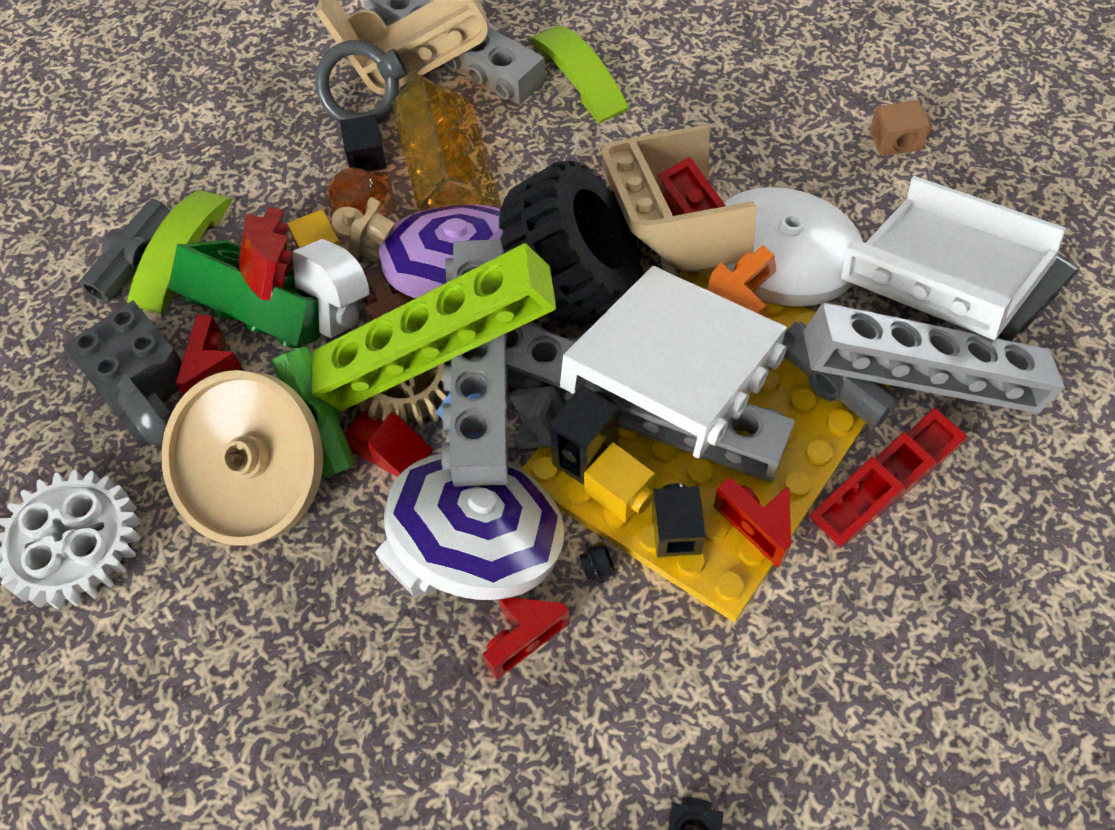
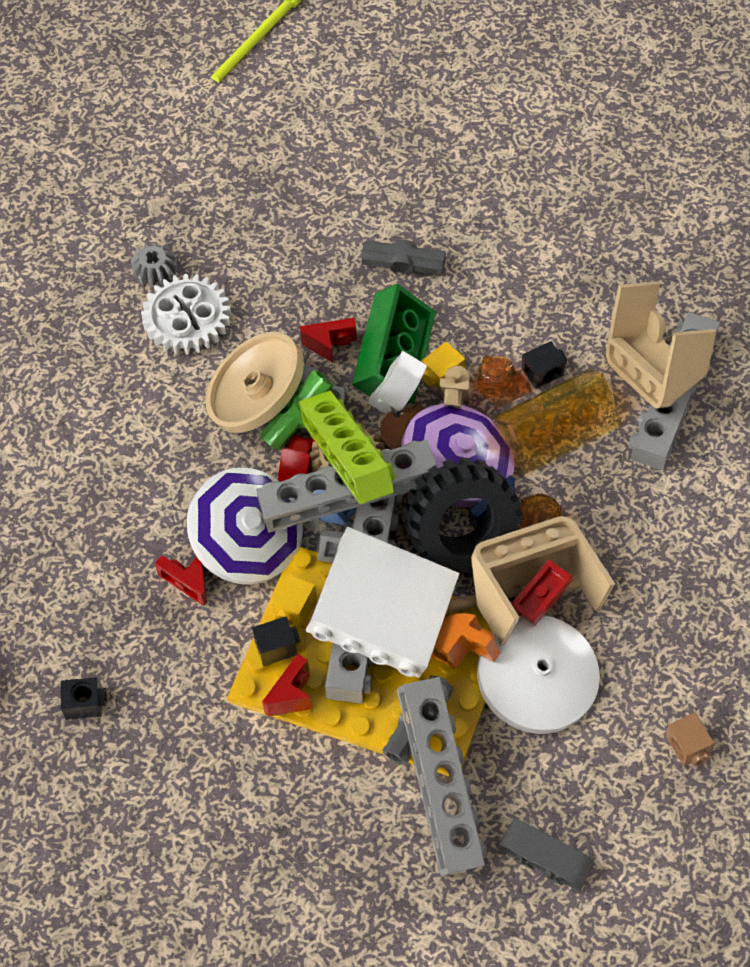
camera: 75 degrees right, 0 degrees up
(130, 370) = (306, 296): dark grey brick -> none
(182, 225) = (422, 282): lime slope -> none
(264, 254) = (408, 334): red slope -> none
(388, 64) = (610, 354): dark grey piece -> none
(583, 431) = (312, 561): black brick -> none
(584, 70) = (677, 489): lime slope -> none
(597, 561) = (243, 606): black plate -> none
(887, 477) = (356, 777): red slope -> none
(955, 257) = (543, 785): white panel -> none

